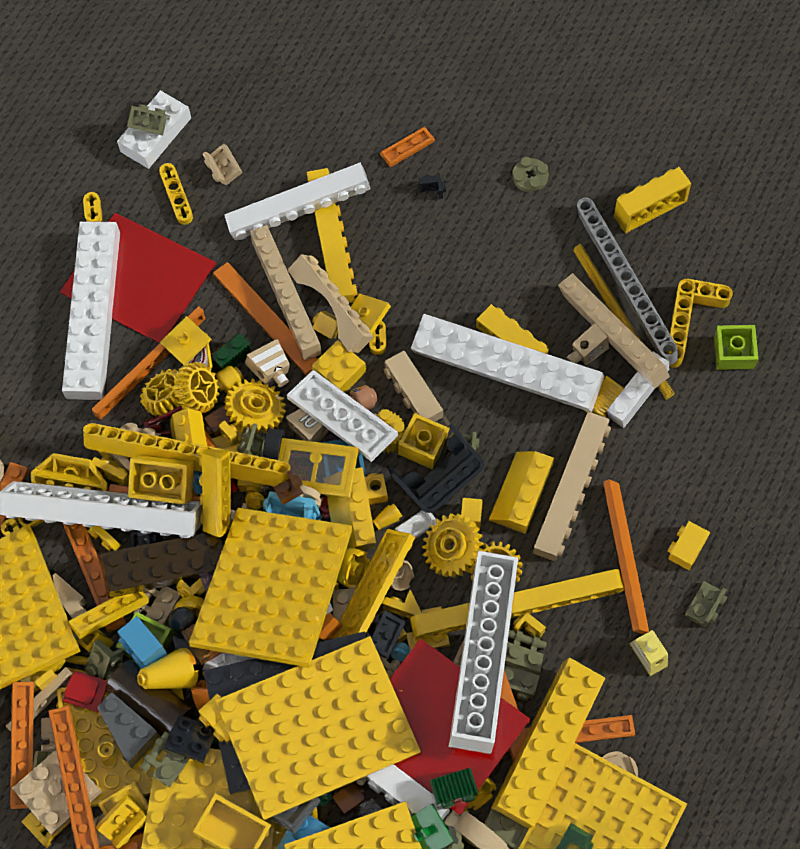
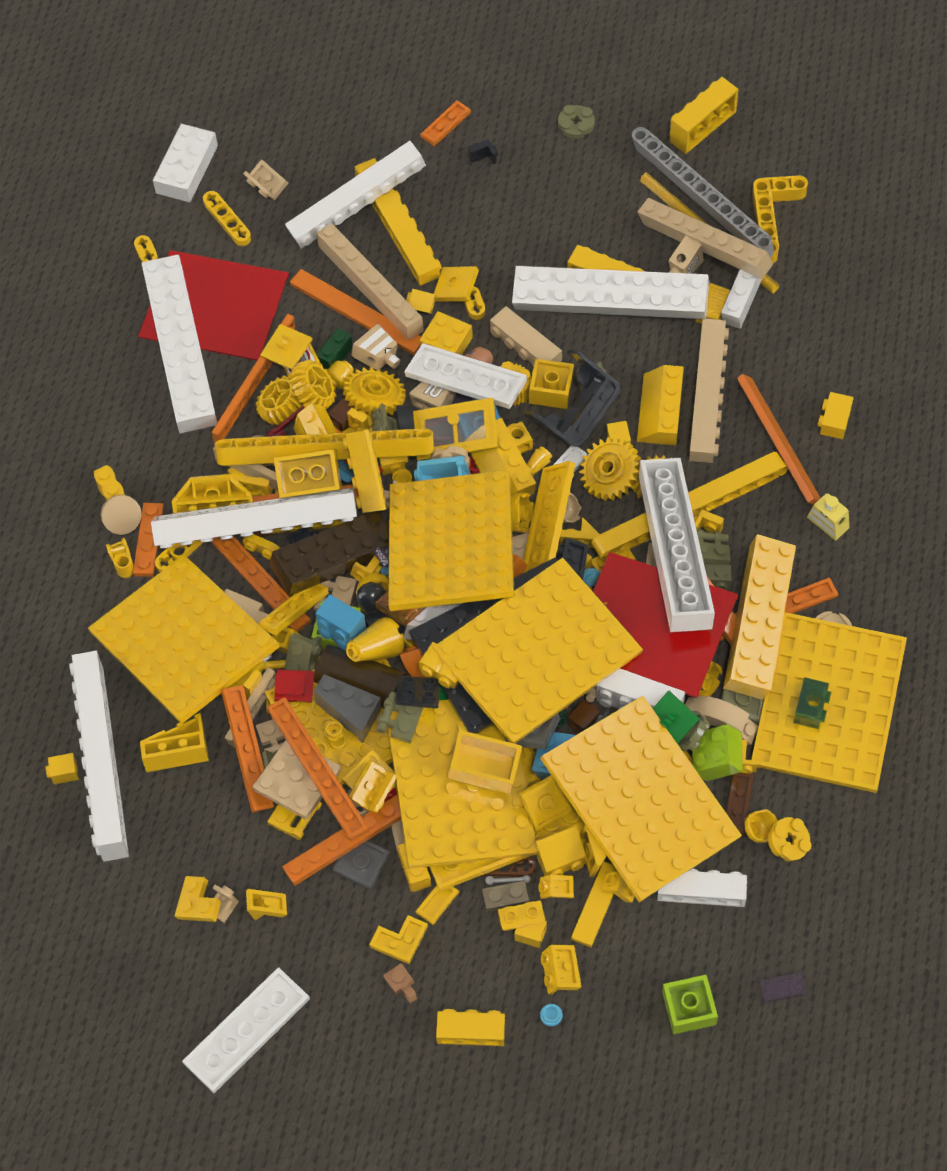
camera: 15 degrees left, 5 degrees down
(147, 120) = (180, 151): olive bracket -> none
(289, 488) = (437, 451): reddish brown bracket -> none
(351, 330) = (449, 299): tan arch -> none
(454, 788) = (685, 671): dark green brick -> none
(705, 604) = (867, 464): olive bracket -> none
(735, 347) = (825, 229): lime brick -> none

